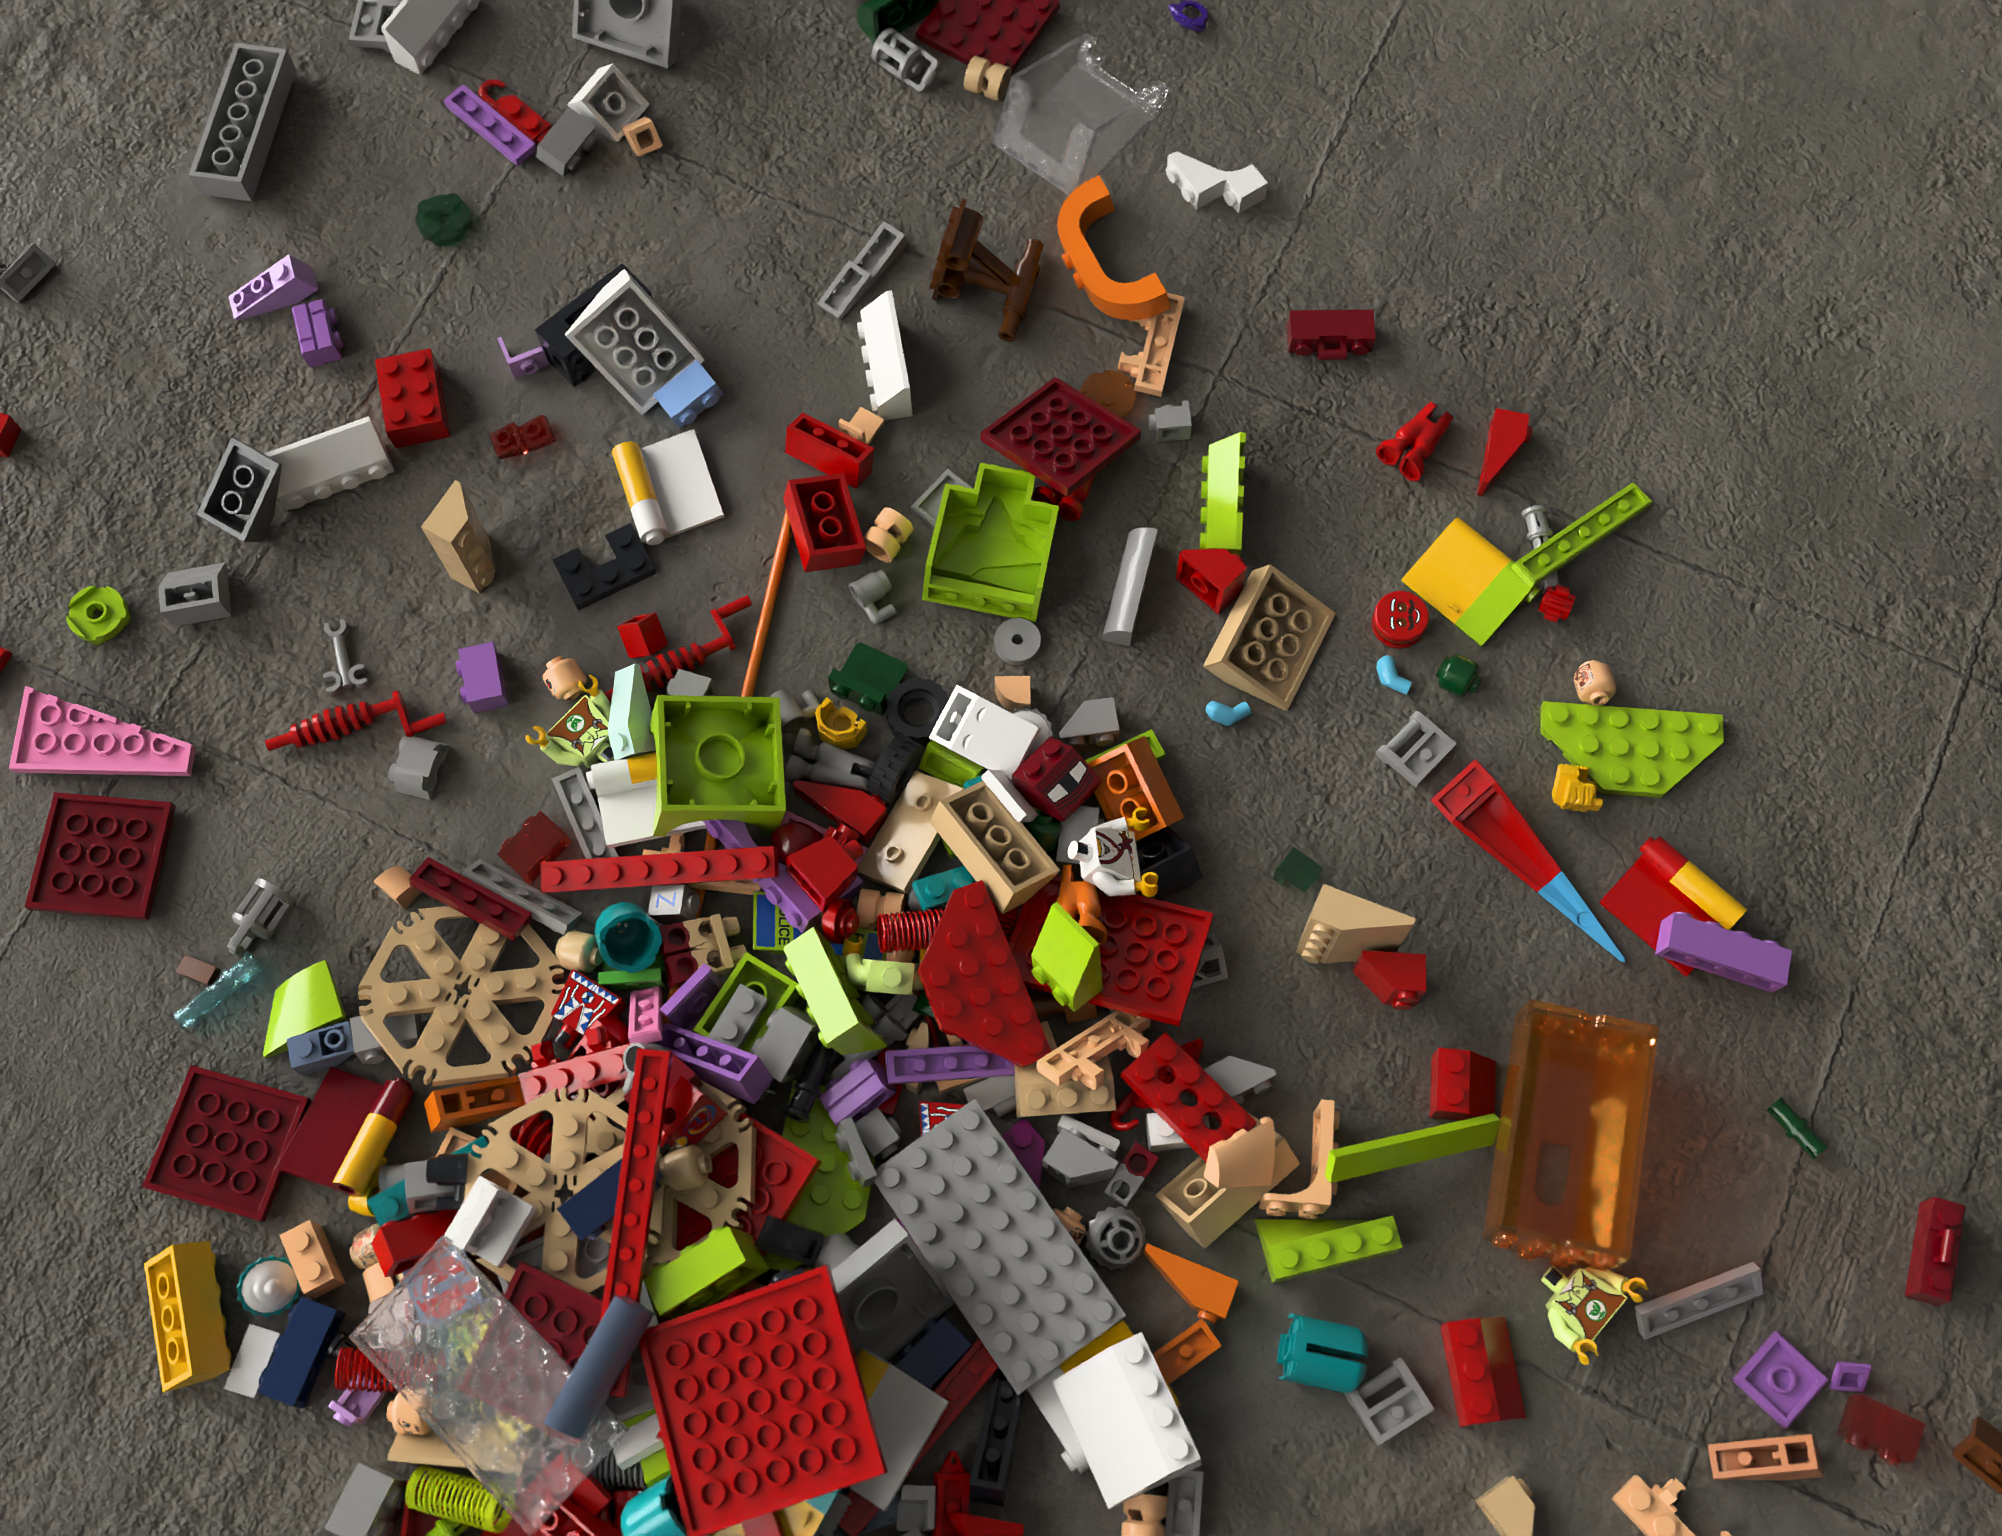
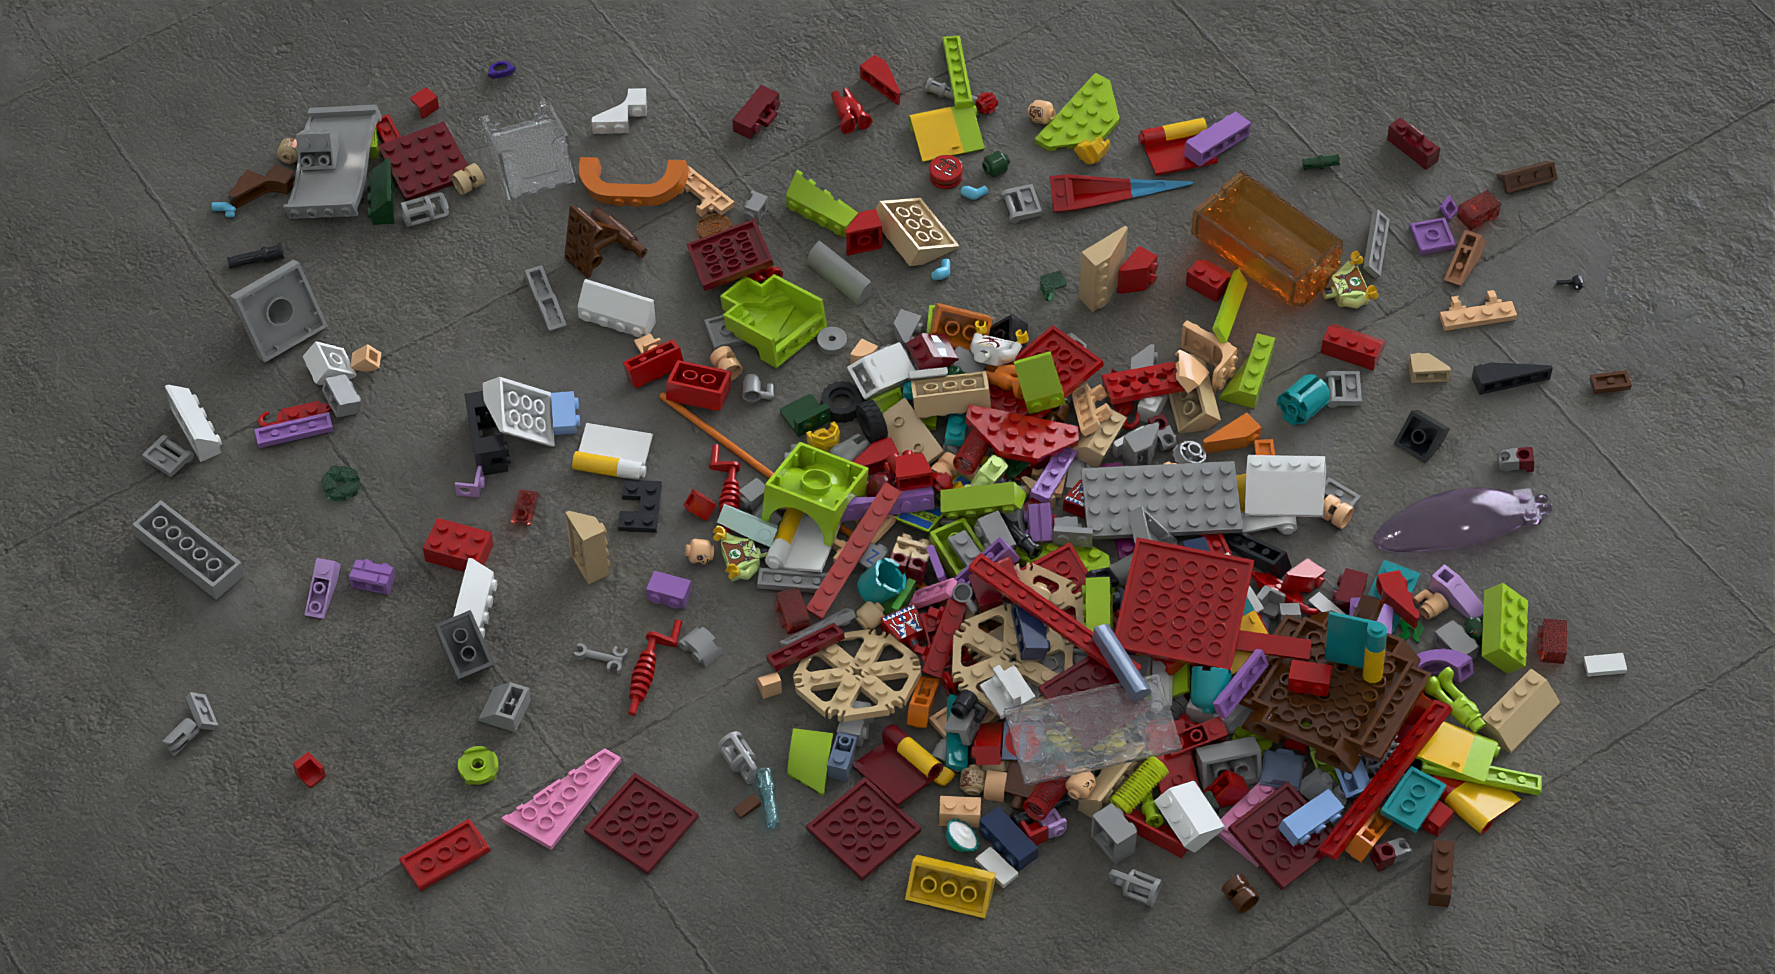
camera: 60 degrees left, 15 degrees down
(322, 1381) = (1035, 832): none -> red panel

